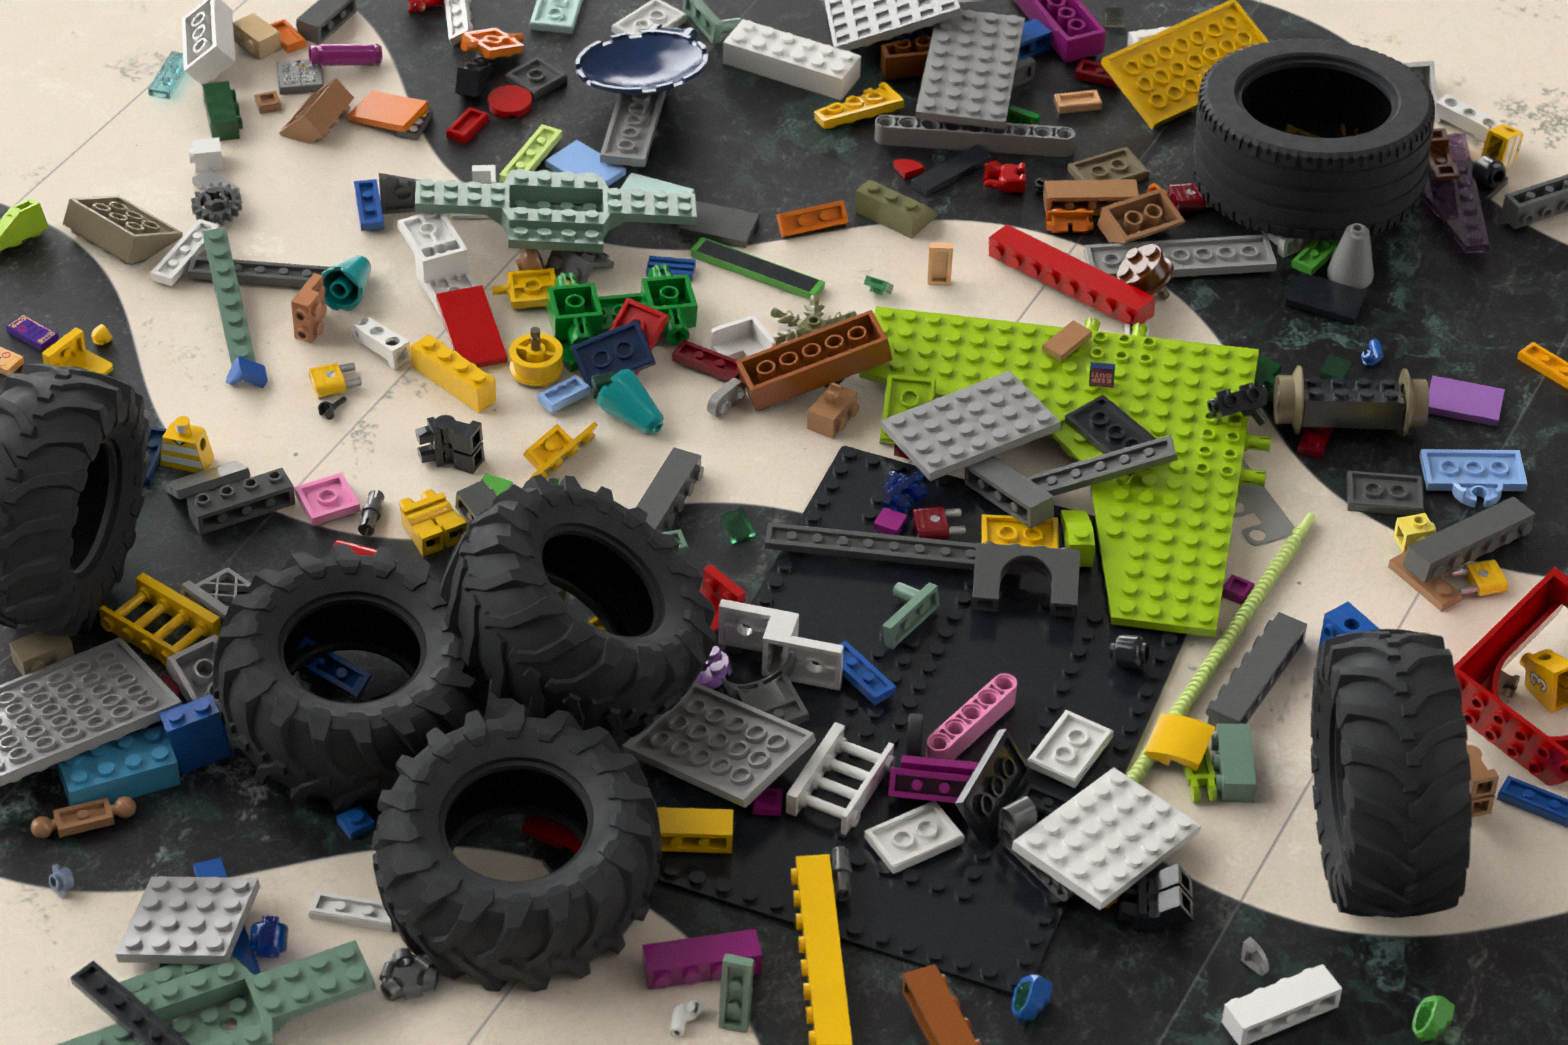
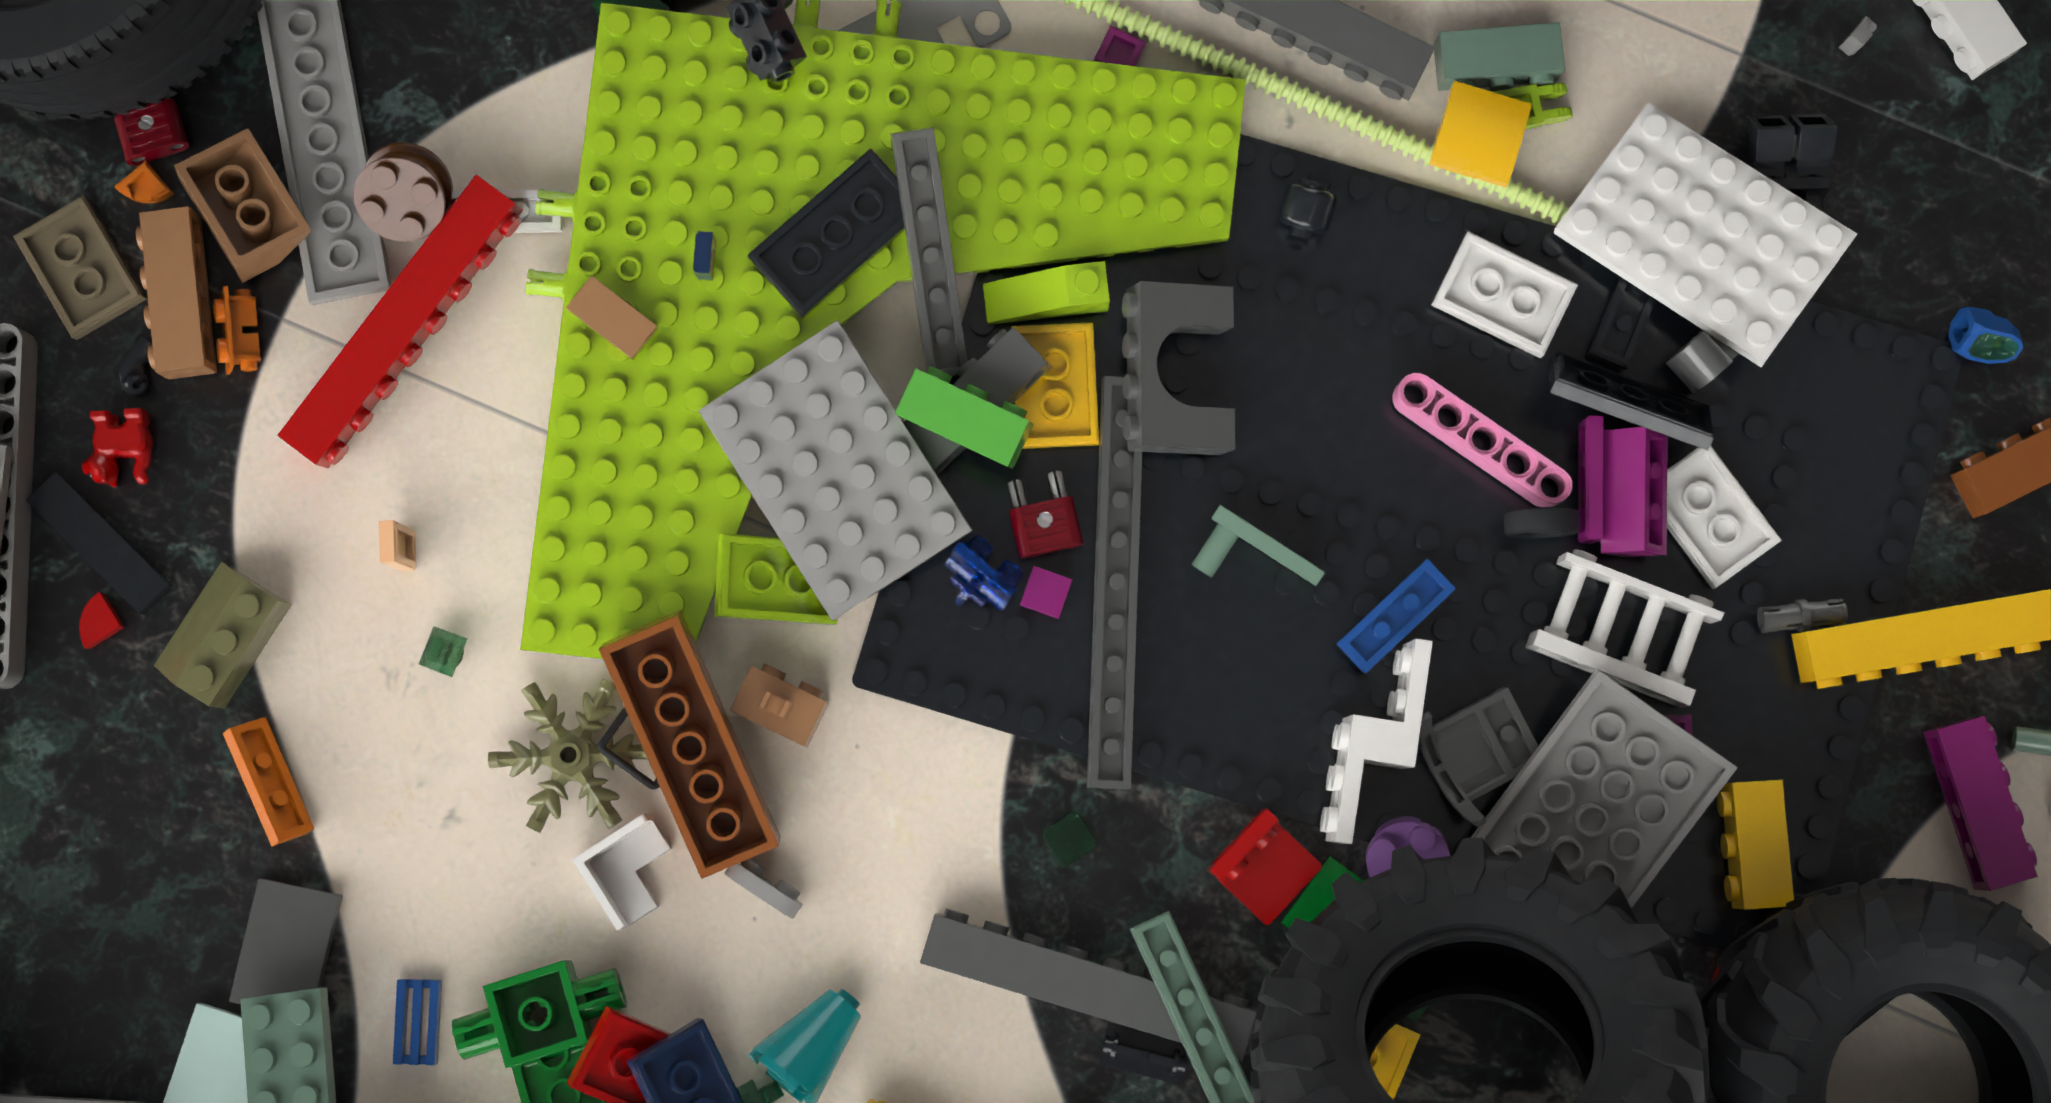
camera: 95 degrees left, 40 degrees up
(706, 361) = (670, 927): dark red plate -> none
(757, 268) = (405, 869): tile -> none
(997, 468) = (965, 416): none -> bright green brick

